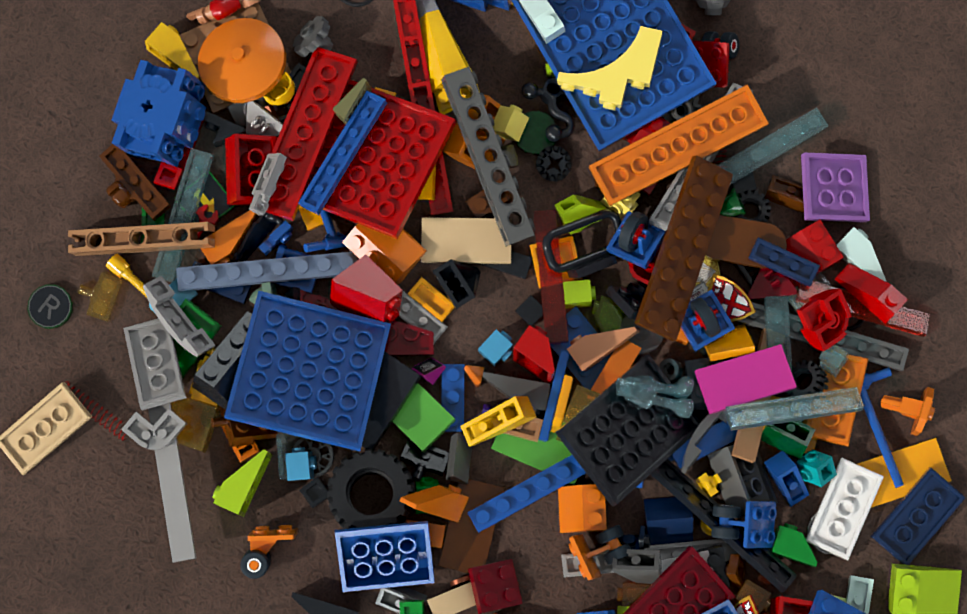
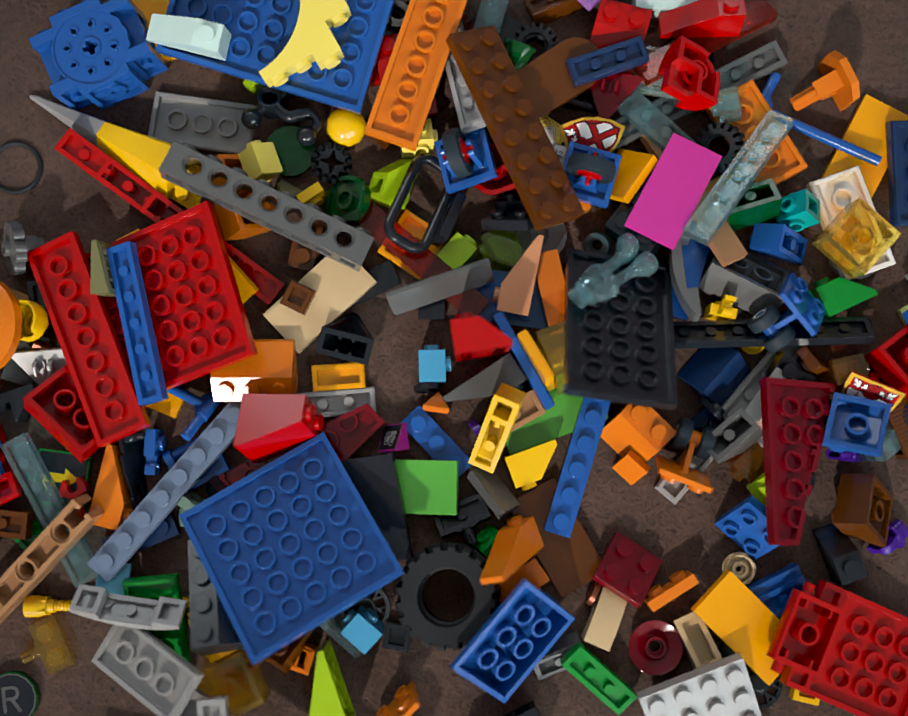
camera: 40 degrees left, 5 degrees up
(266, 182) = (92, 414): light grey hinge -> none
(453, 227) = (298, 297): none -> reddish brown tile
(479, 358) = (426, 387): none -> black piece
(496, 63) = (200, 122): none -> light grey tile
(497, 465) = (530, 464): none -> yellow slope
(522, 173) = (313, 194): none -> yellow plate
(541, 196) = (348, 199): none -> dark green tile
(546, 303) = (440, 286): none -> dark grey slope
(558, 527) = (631, 467): none -> orange tile
(583, 150) = (345, 127): none -> yellow hair
(832, 516) = (856, 238): none -> clear yellow brick

